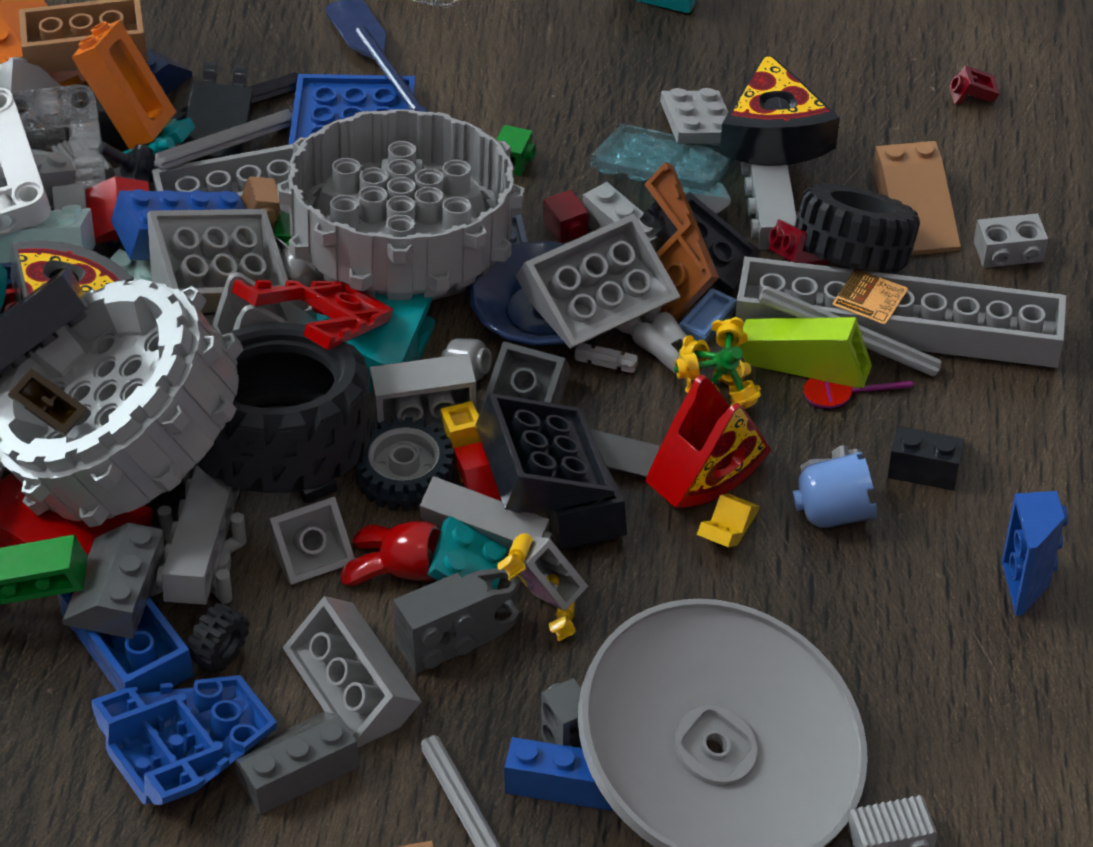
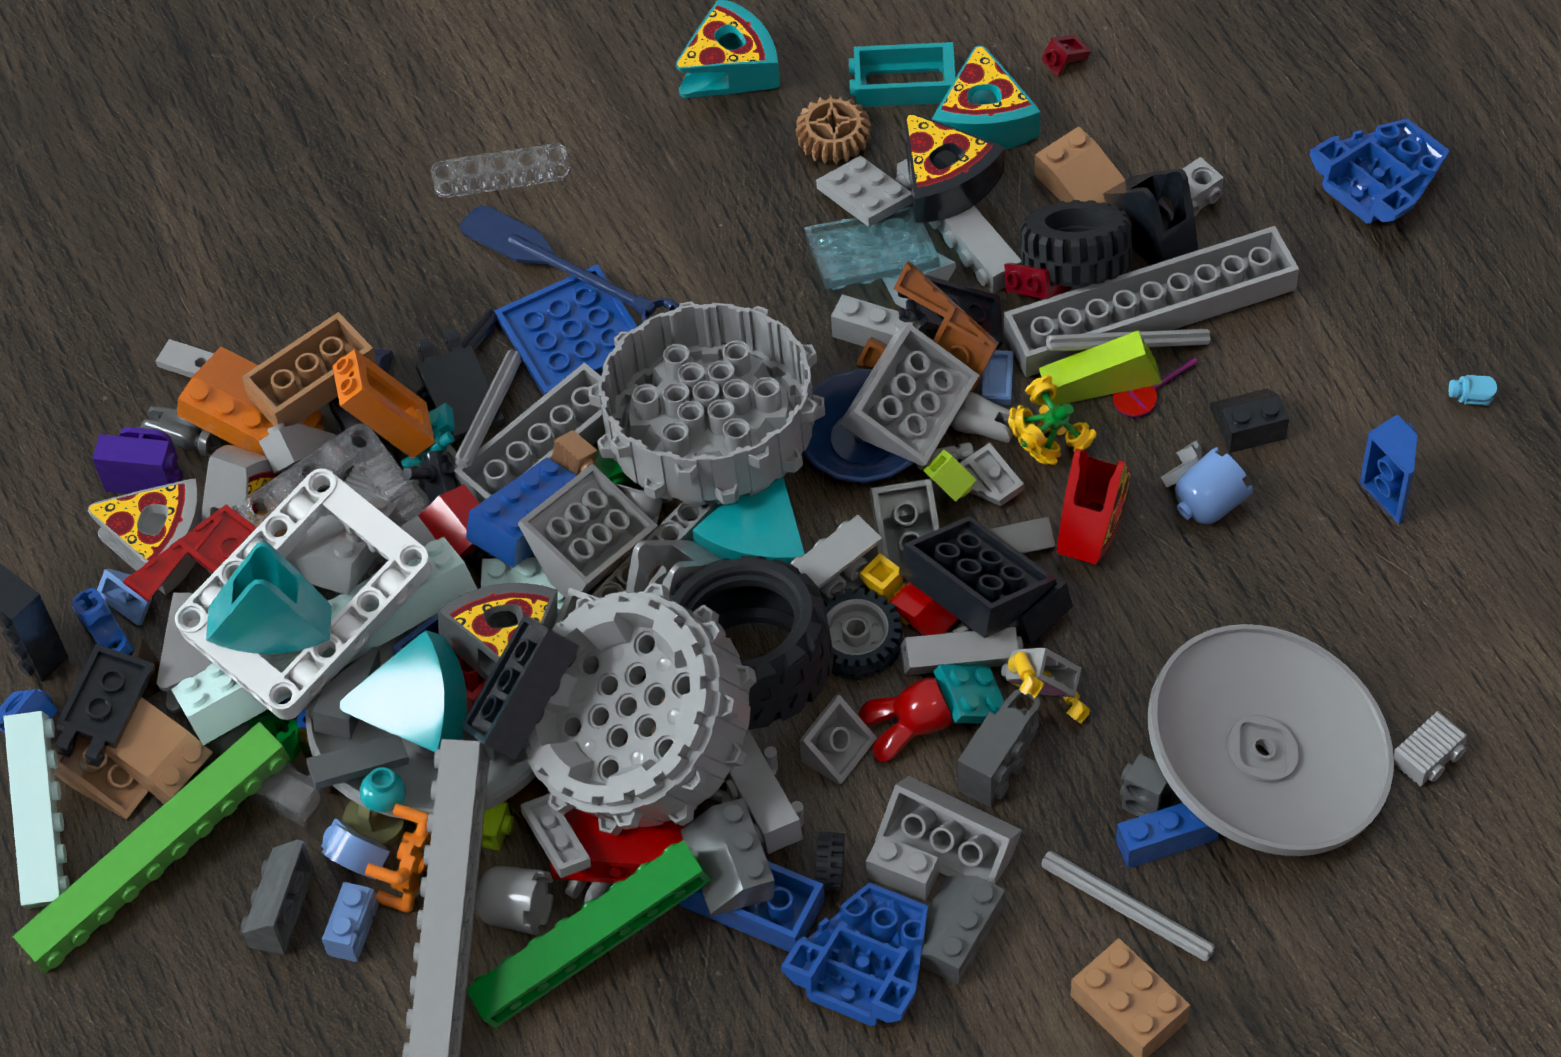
camera: 25 degrees left, 10 degrees up
(47, 402) = (602, 742): dark brown slope -> none
(283, 679) = (902, 867): none -> light grey brick
(351, 310) = (713, 521): red wing -> none
(479, 354) = (836, 511): light grey head -> none
(521, 146) = (733, 290): green brick -> none
(565, 216) = (826, 340): dark red brick -> none
(590, 368) = (950, 475): none -> lime brick
(630, 390) = (993, 476): none -> light grey wing
(709, 60) = (850, 126): none -> medium nougat gear
(729, 520) = (1140, 553): yellow slope -> none
(812, 31) = (901, 59): none -> teal piece
(868, 105) = (989, 103): none -> piece
(870, 296) = (1127, 301): clear orange sticker -> none
(947, 239) = (1155, 229): none -> black piece

